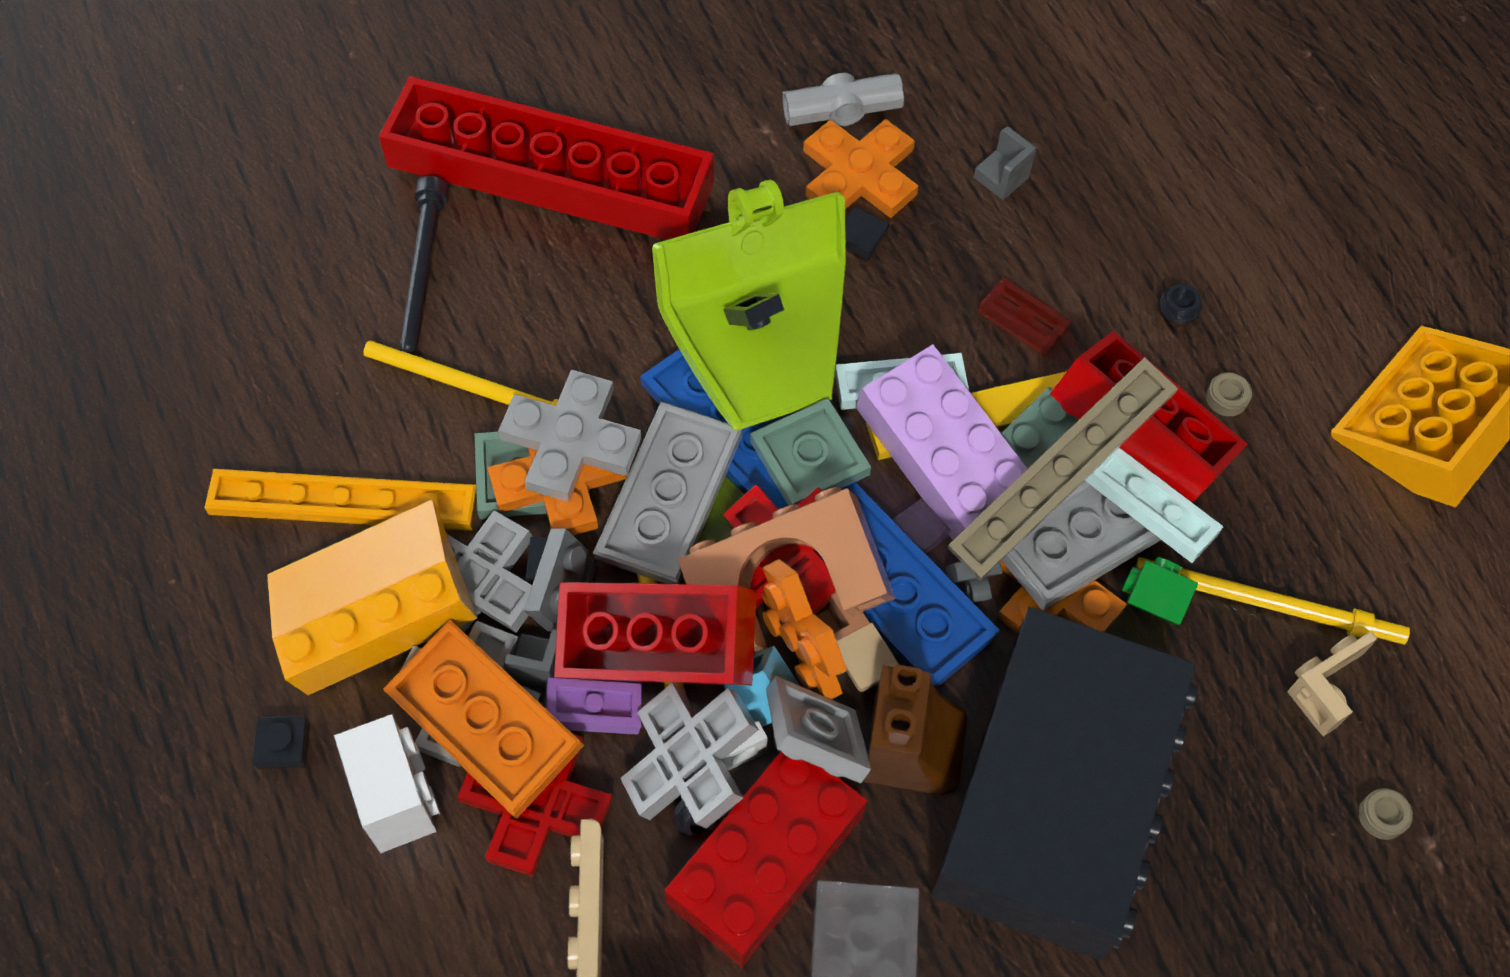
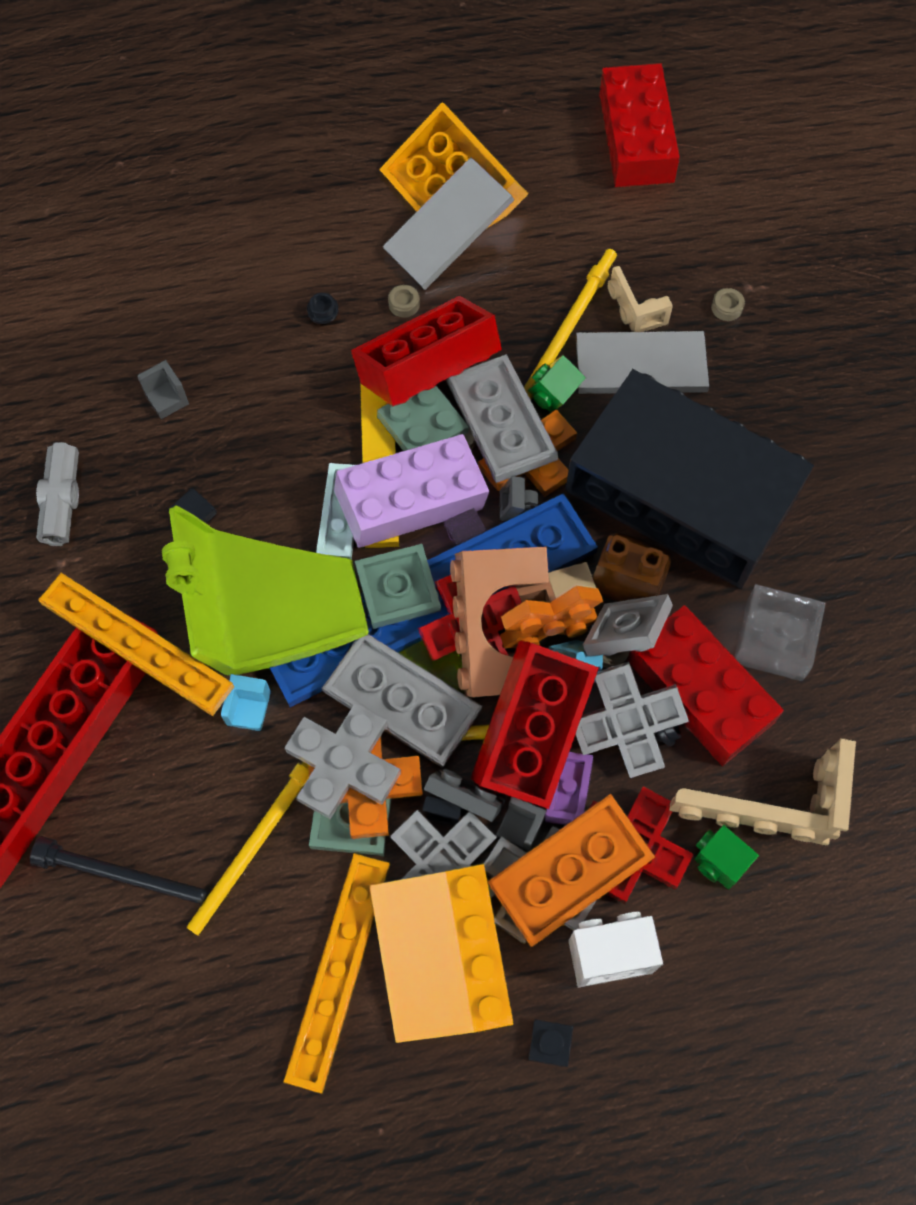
camera: 75 degrees left, 5 degrees up
(534, 913) = (724, 857): none -> green brick
(633, 335) = (246, 703): none -> medium azure panel
(664, 201) = (137, 644): none -> light orange tile
(754, 310) = (256, 599): black plate -> none
(862, 166) = (128, 498): orange plate -> none
(1020, 320) = (306, 418): clear red tile -> none
(1062, 468) = (468, 409): dark tan plate -> none
(1155, 505) = (494, 365): light aqua plate -> none
(1244, 709) = (669, 357): none -> light grey tile
(1361, 413) = (448, 223): none -> light grey tile

